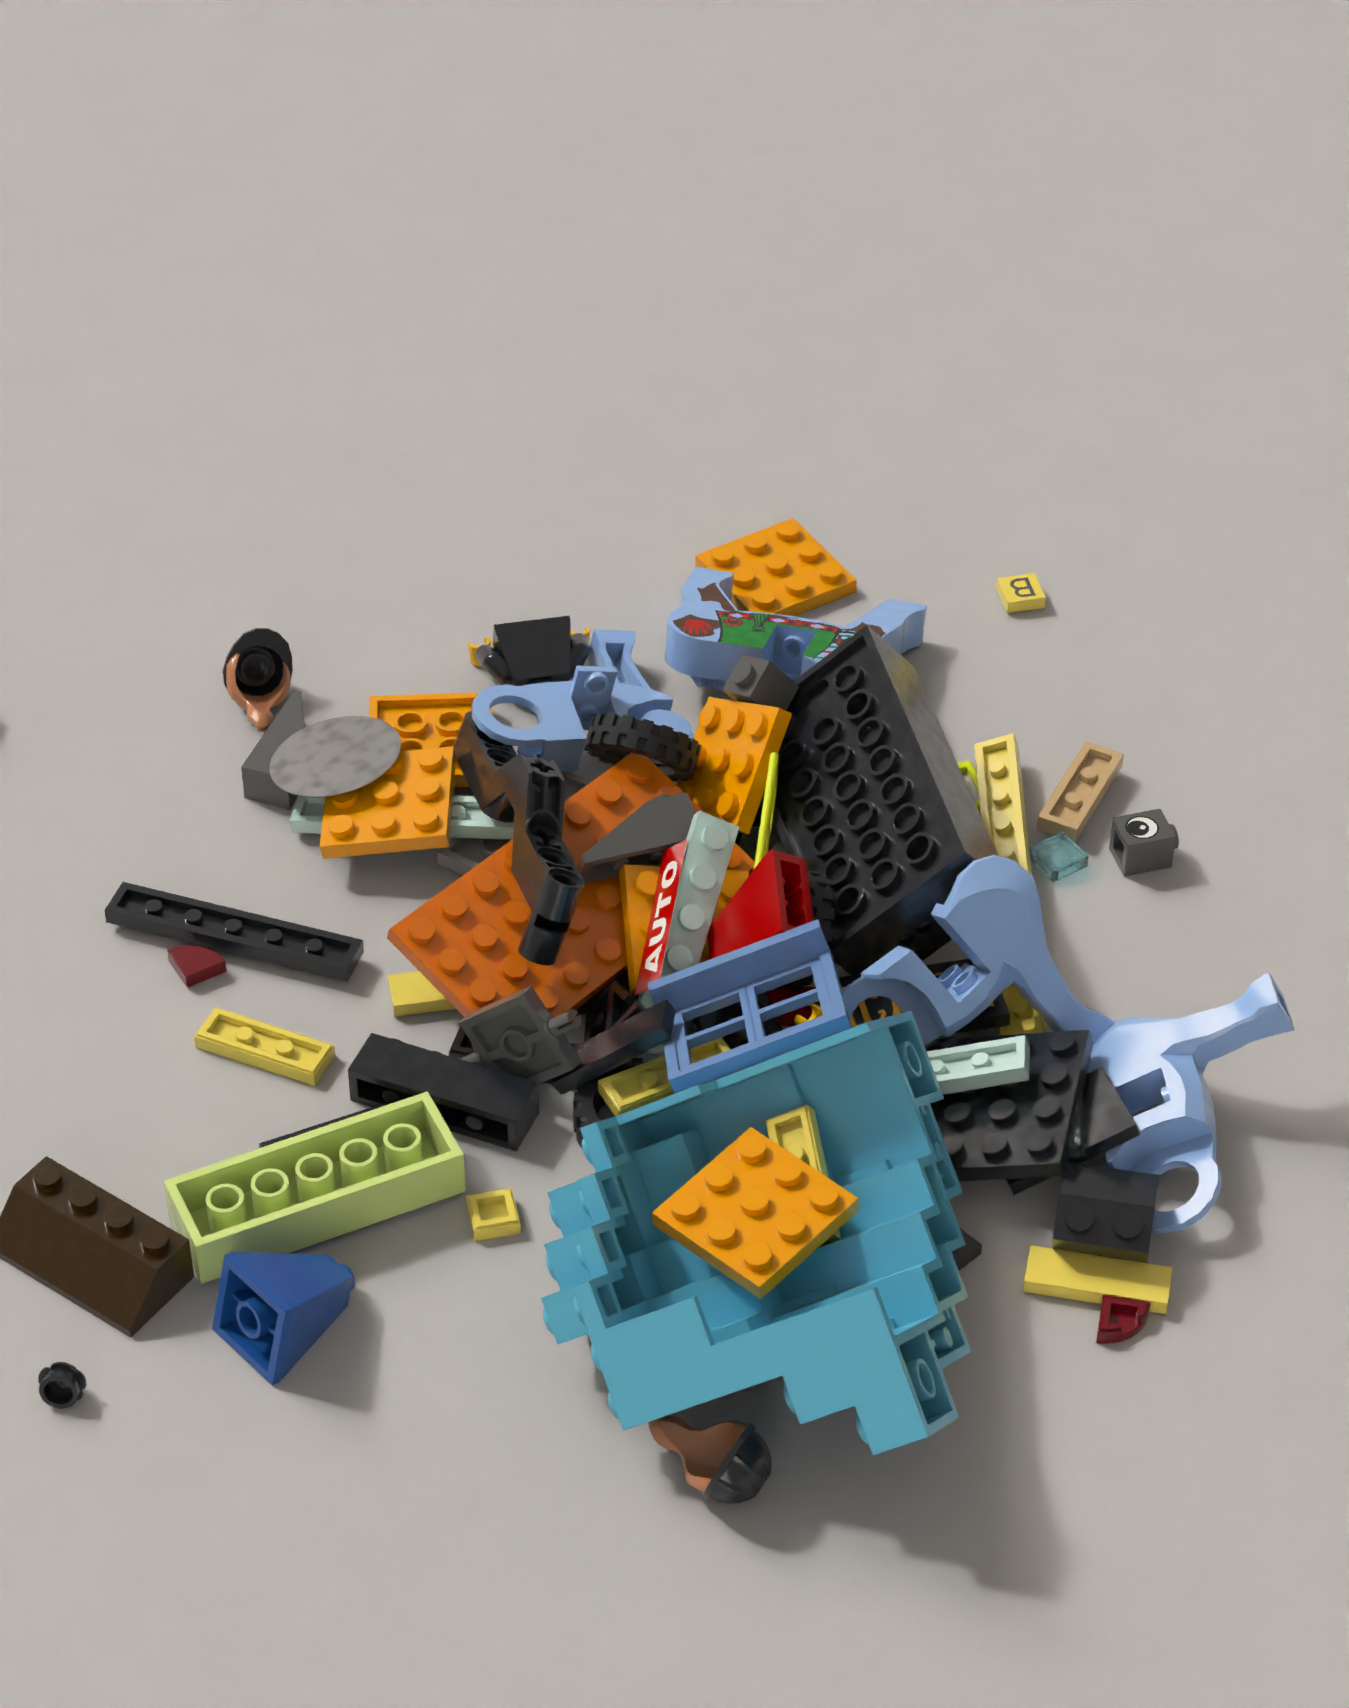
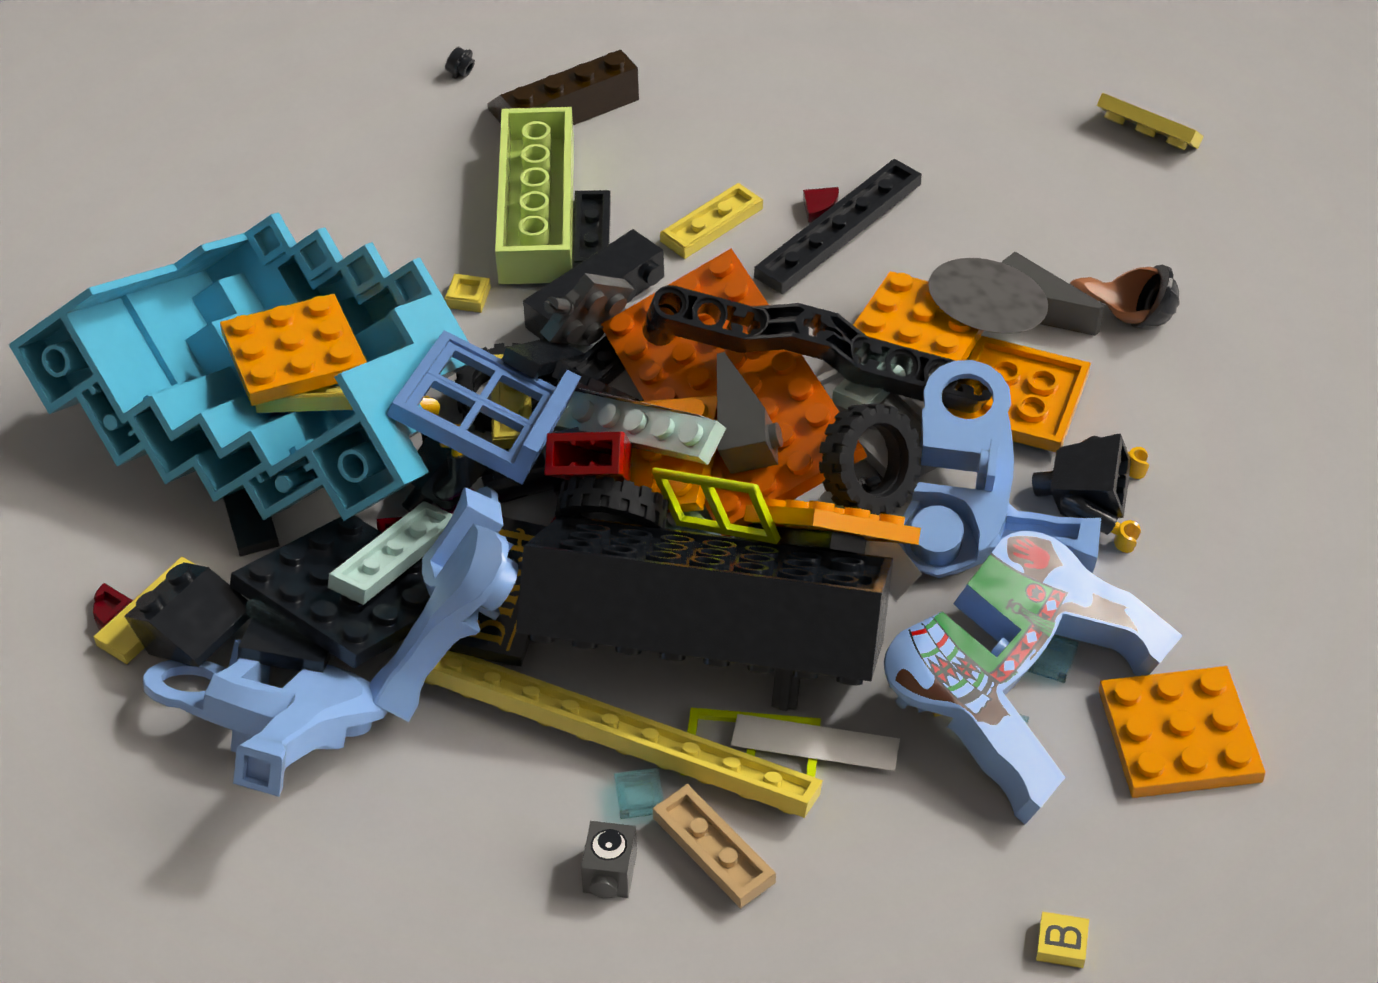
camera: 115 degrees right, 5 degrees up
(278, 1306) = (437, 152): blue slope -> none
(760, 683) = (885, 539): dark grey brick -> none

